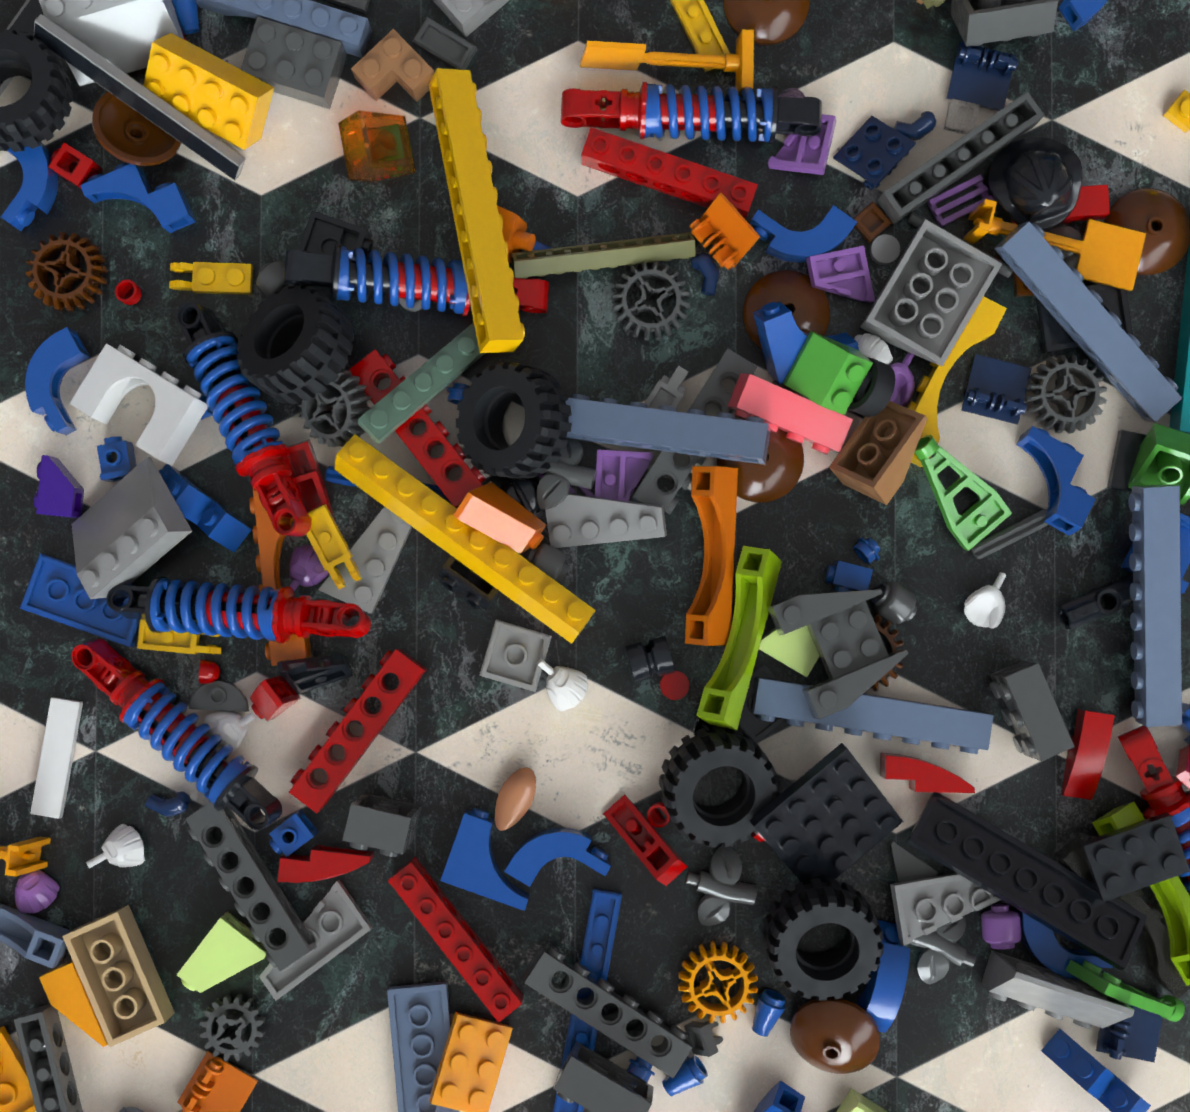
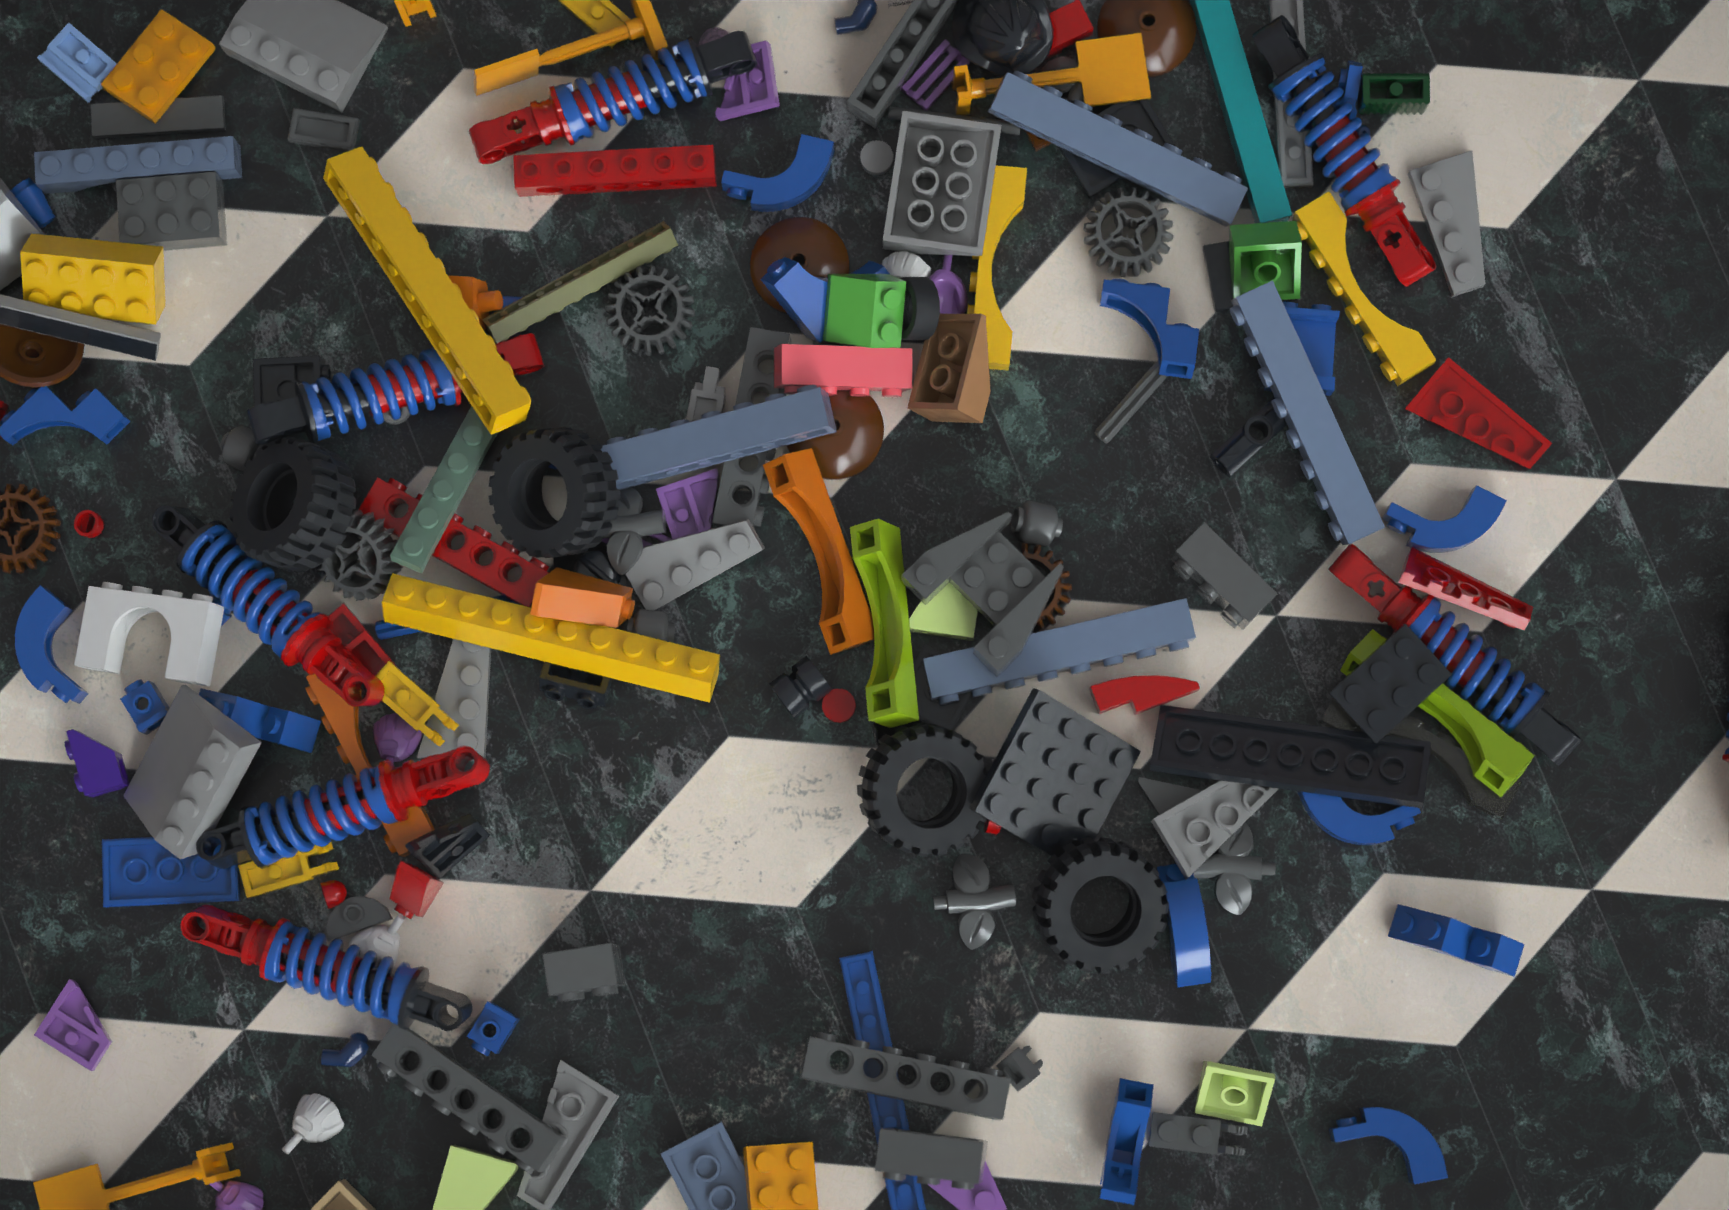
camera: 15 degrees left, 5 degrees down
(56, 757) = (205, 1051): white tile -> none
(214, 278) = (174, 472): yellow hinge -> none
(317, 794) = (505, 974): red brick -> none
(322, 864) = (538, 1047): red slope -> none
(376, 146) = (293, 265): clear orange slope -> none
(393, 62) = (275, 170): medium nougat brick -> none
(455, 393) = (481, 490): blue plate -> none
(456, 939) = (712, 1068): red brick -> none
(473, 864) = (697, 980): blue arch -> none
(514, 655) = (656, 743): light grey tile -> none
(515, 798) = (716, 894): nougat arm -> none
(554, 844) = (765, 935): blue arch -> none
(564, 685) = (721, 753): white piece -> none
(641, 1069) = (967, 1127): blue plate -> none
(645, 841) = (874, 882): red slope -> none
(655, 817) = (875, 854): red hinge -> none
(688, 1076) = (1018, 1117): blue cone -> none
(709, 270) = (700, 254): dark blue arm -> none
(725, 231) = (700, 206): orange hinge -> none
(727, 976) = (992, 1023): light orange gear -> none
(768, 1011) = (1078, 1012): blue cone -> none
(835, 1035) = (1162, 990): reddish brown dish -> none
(842, 274) = (841, 201): medium lavender wing -> none
(848, 577) = (974, 513): blue brick -> none
(867, 550) = (985, 480): blue plate -> none
(871, 222) = (850, 134): reddish brown tile -> none
(874, 151) = (823, 60): dark blue hinge -> none
(978, 519) = (1088, 402): bright green plate -> none
(986, 605) = (1135, 487): white piece -> none
(996, 389) = (1054, 256): dark blue hinge -> none
(1001, 926) = (1288, 819): medium lavender head -> none
(1054, 993) = (1367, 865): light grey slope -> none
(1088, 756) = (1305, 600): red slope -> none
(1110, 985) = (1410, 825): bright green plate -> none
(1132, 1037) = (1472, 872): dark blue hinge -> none

